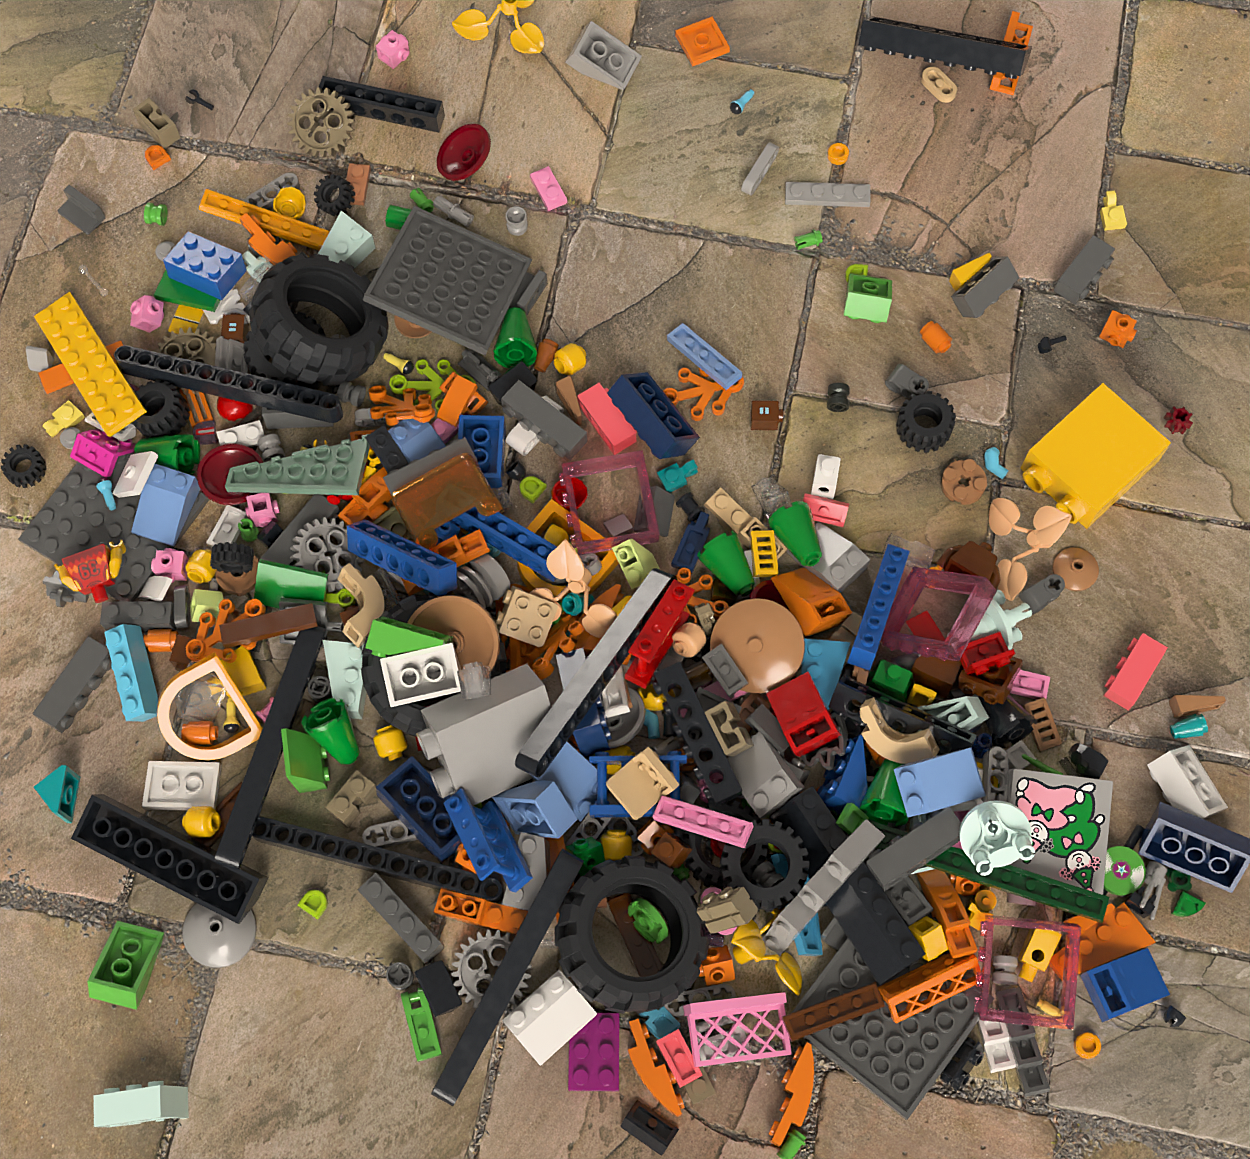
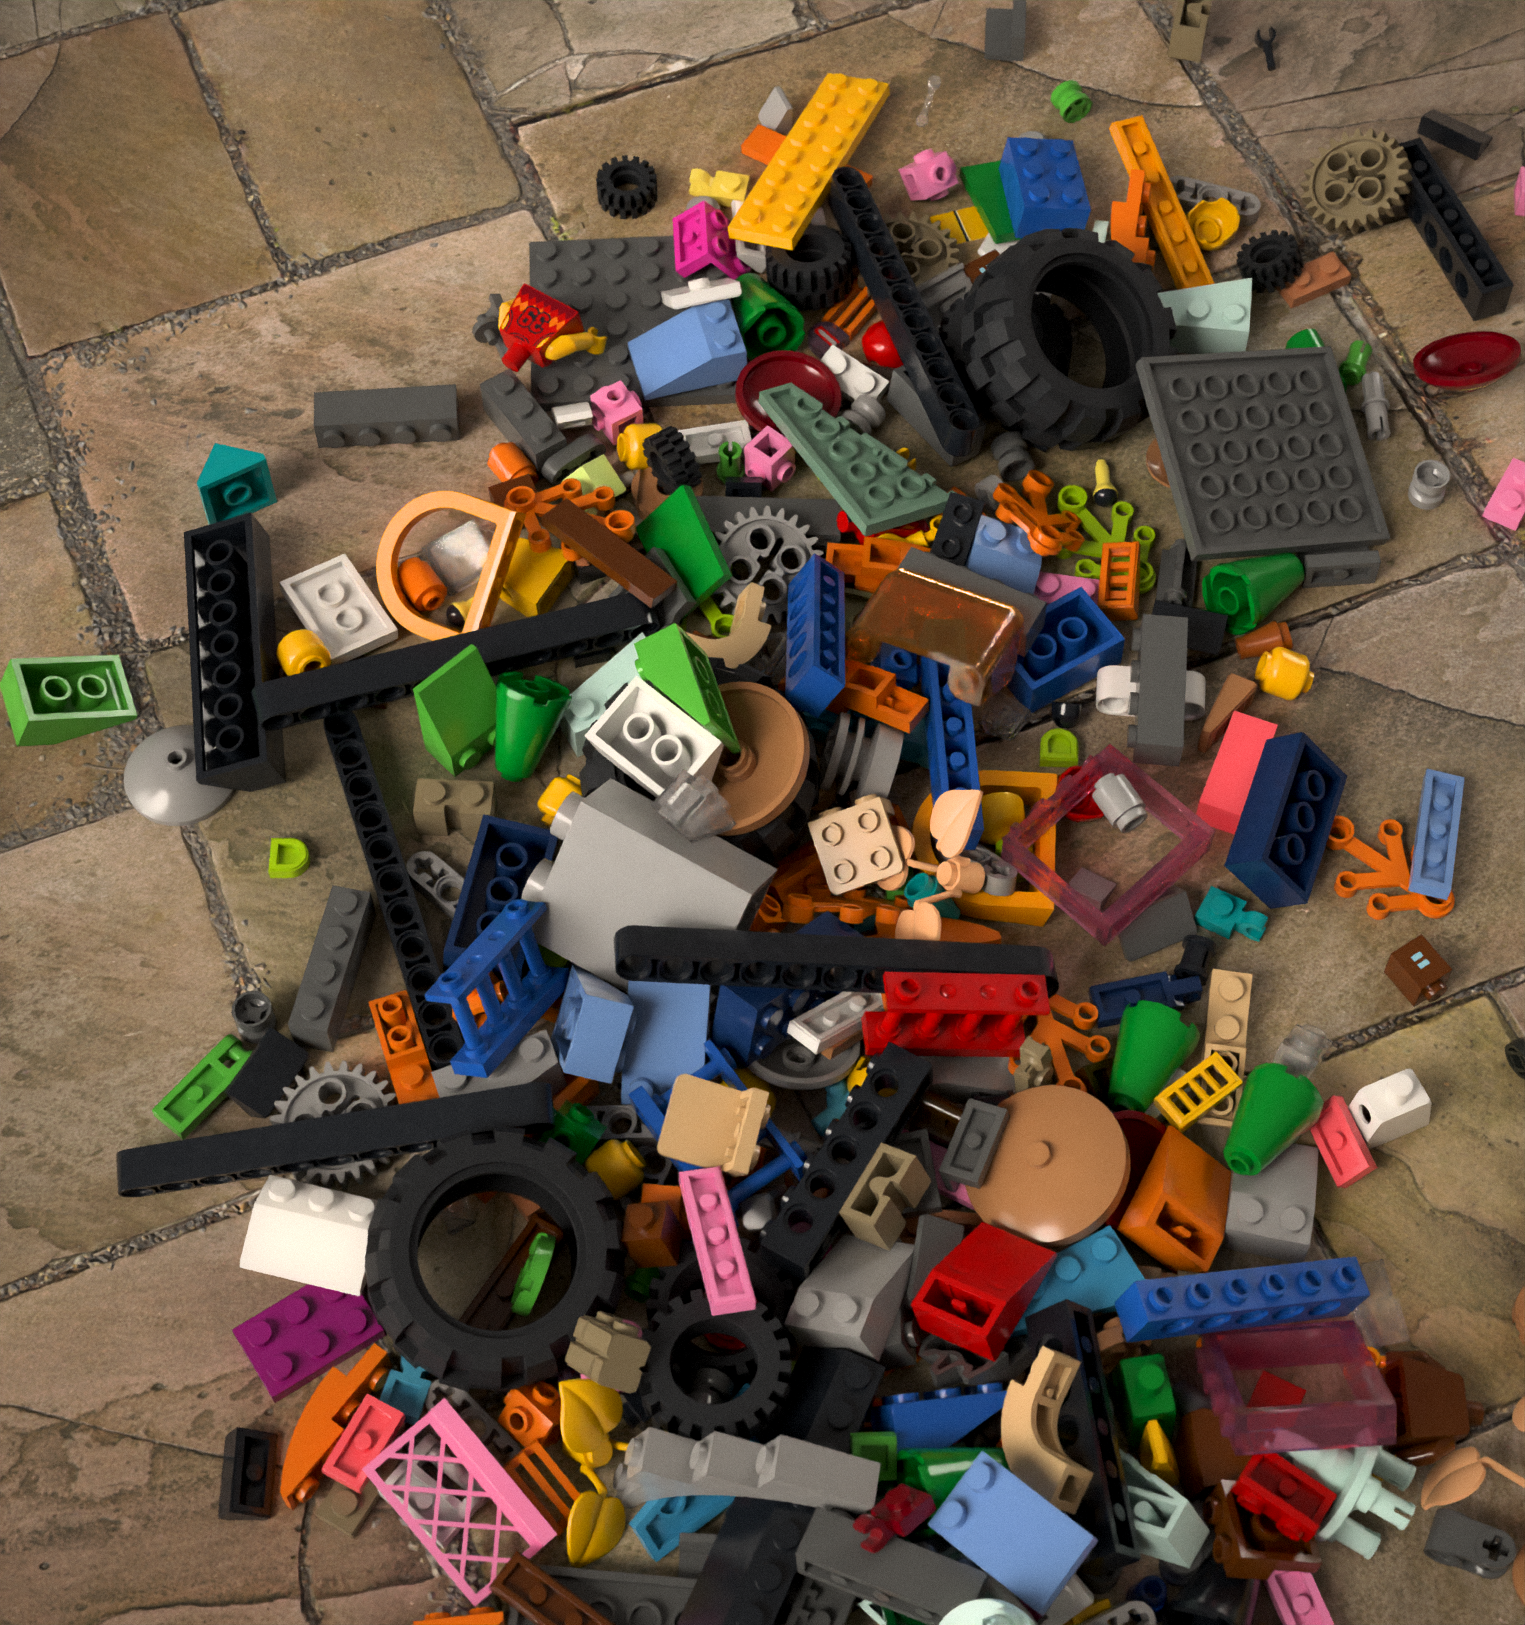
camera: 55 degrees right, 10 degrees down
(104, 485) = (664, 278): medium azure piece -> none
(132, 672) = (446, 453): medium azure brick -> none
(156, 156) = (1150, 55): orange tile -> none
(322, 693) = (575, 671): dark grey wheel -> none
(323, 58) = (1453, 134): none -> black slope
(456, 400) = (1101, 569): orange slope -> none
(599, 481) = (1119, 802): none -> light grey brick
(634, 561) = (1053, 926): yellowish green slope -> none
(689, 640) = (985, 1071): light nougat head -> none
(772, 982) = (522, 1458): none -> orange tile
(895, 827) = (895, 1514): none -> dark red plate

